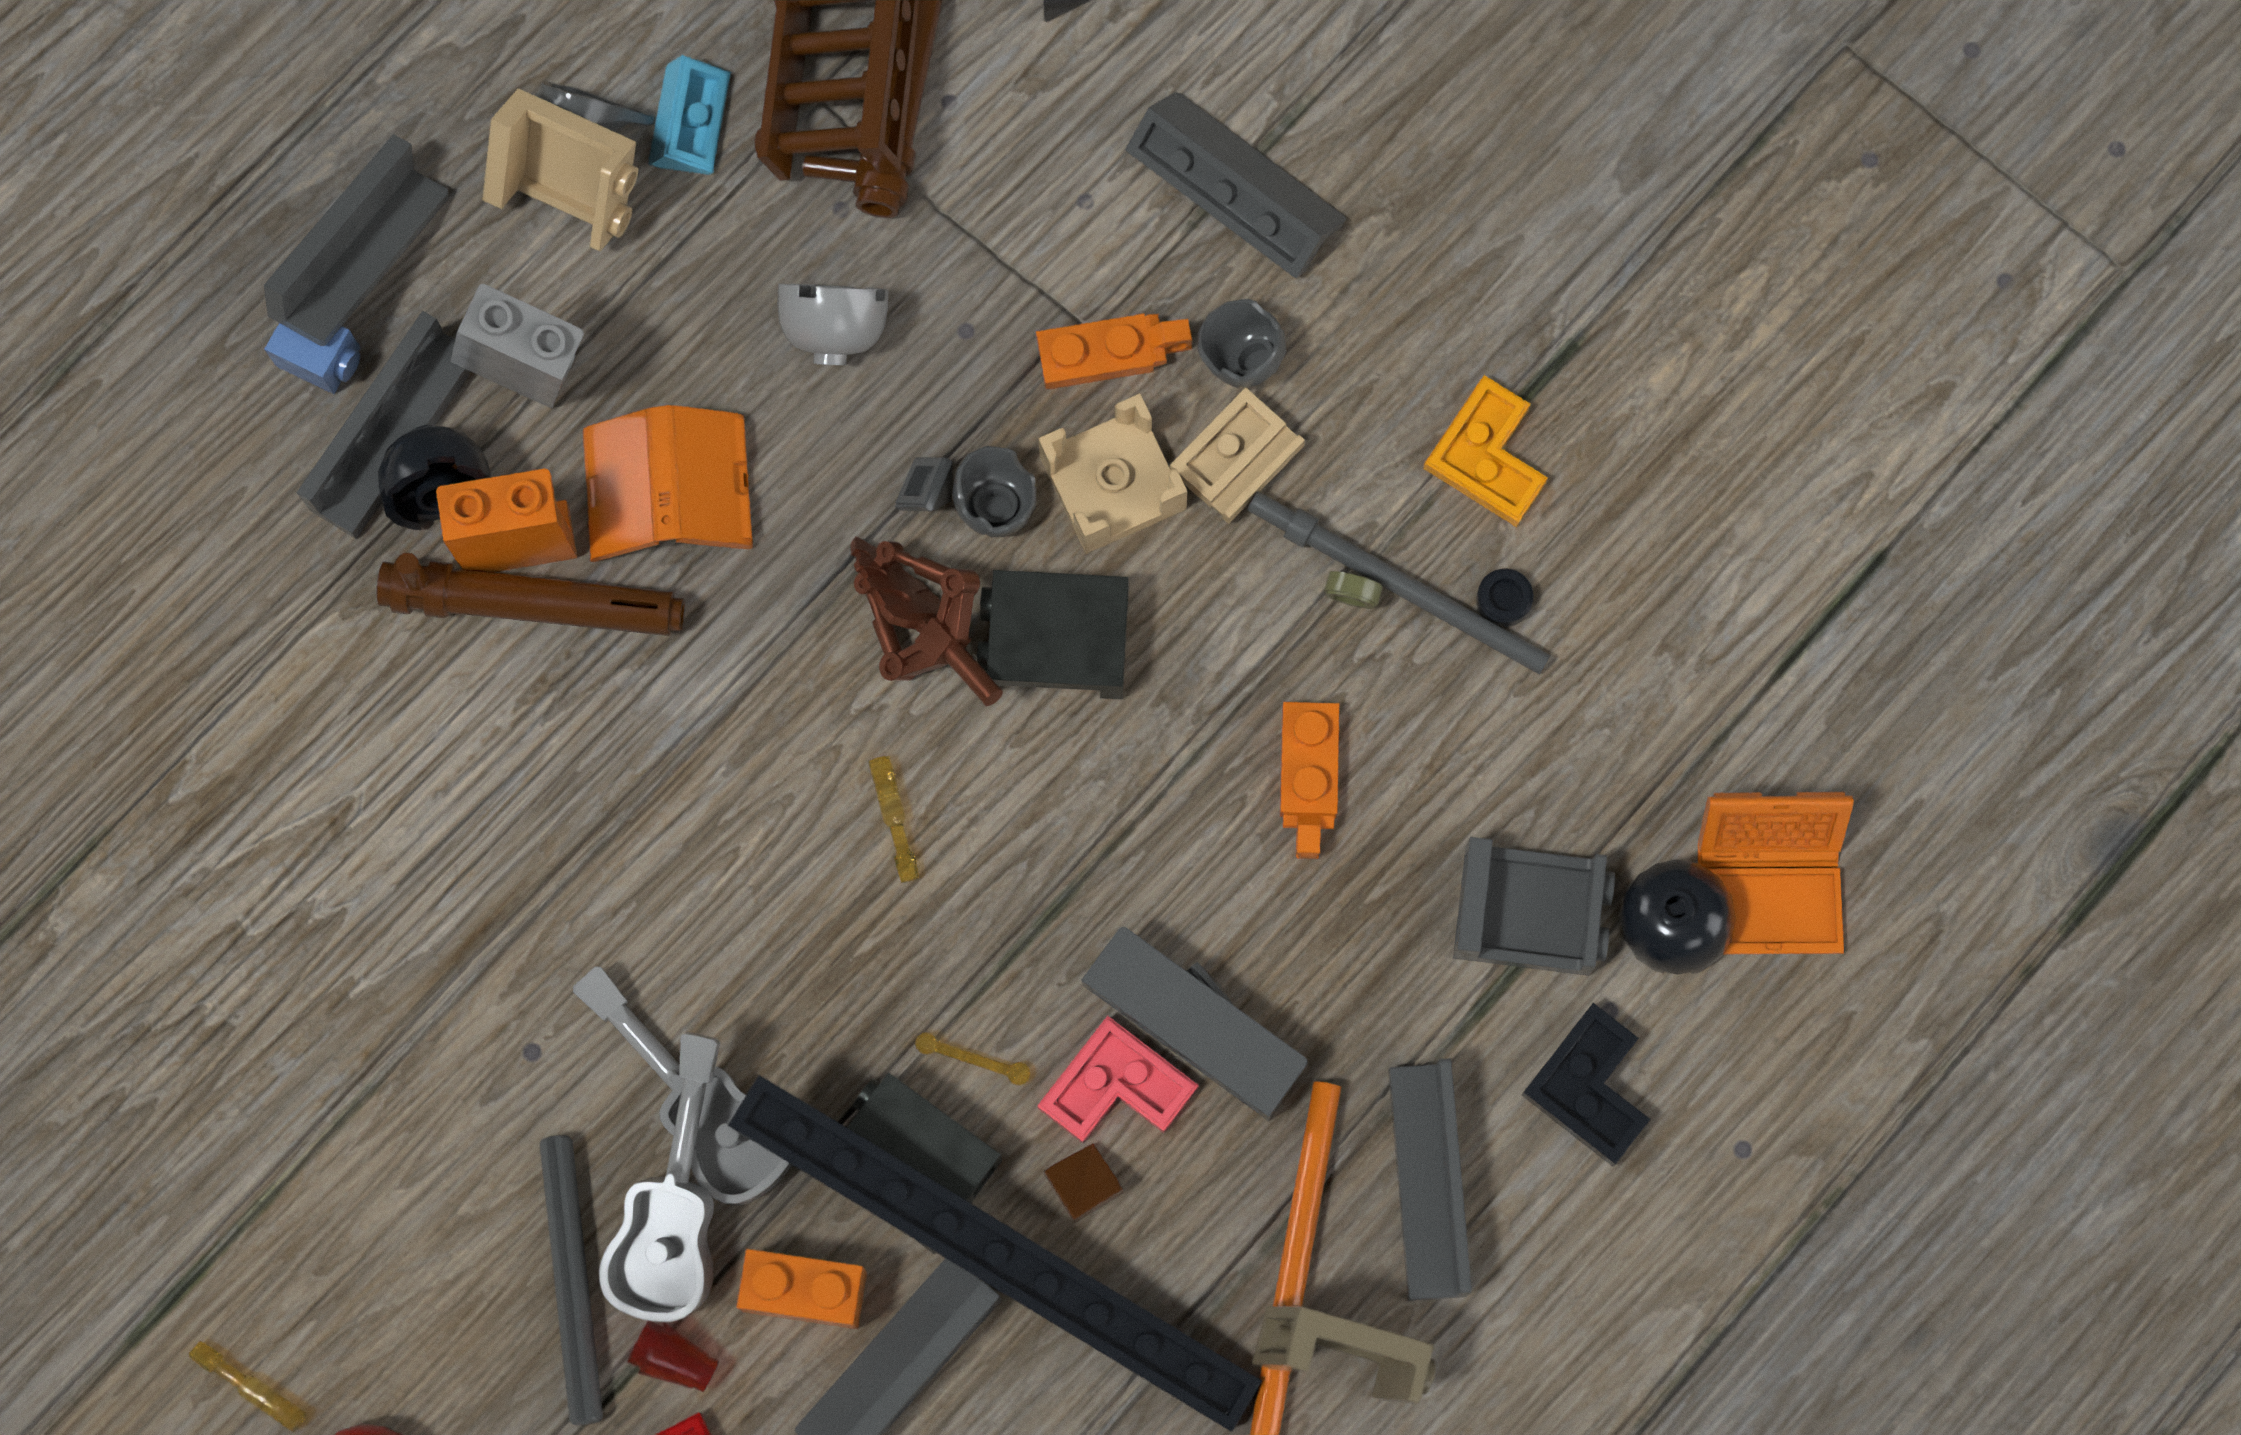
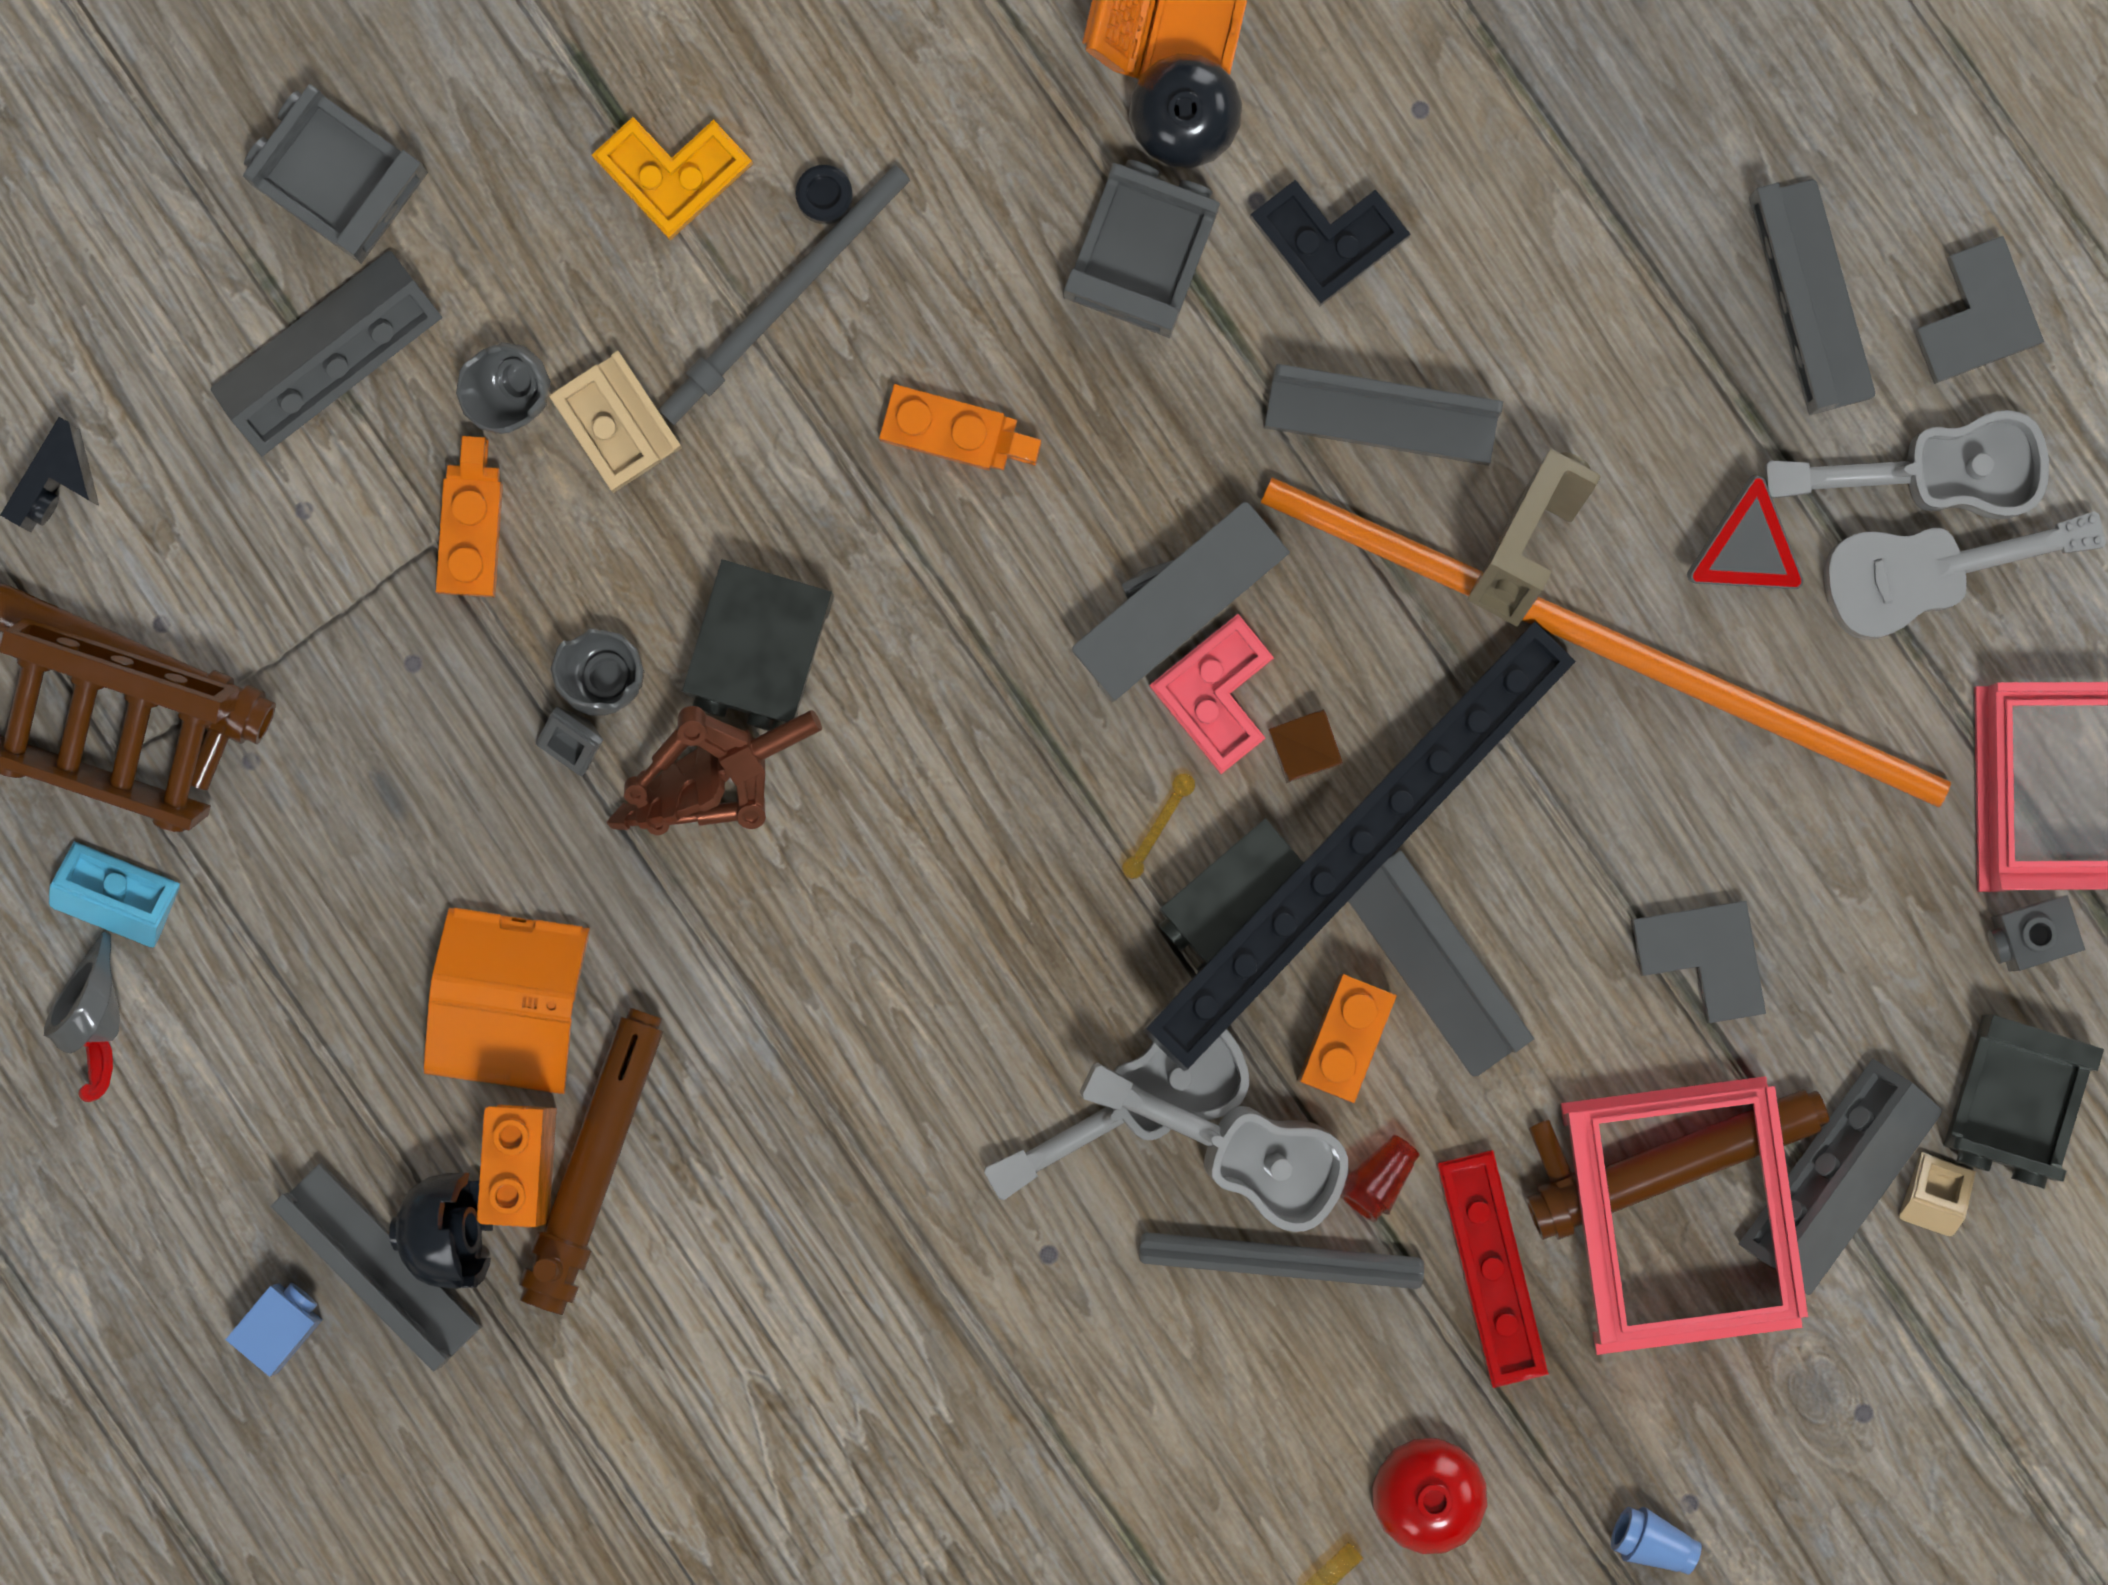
camera: 80 degrees left, 10 degrees up
(353, 244) = (179, 1262): dark grey panel -> none
(516, 345) = (335, 1116): light grey panel -> none
(561, 163) = (145, 1030): tan panel -> none
(831, 319) = (373, 794): light grey cylinder -> none
(893, 816) = (900, 848): clear yellow piece -> none
(1113, 476) = (607, 550): tan panel -> none
(1353, 590) = (783, 341): olive tile -> none
(1405, 149) = (333, 172): none -> dark grey panel

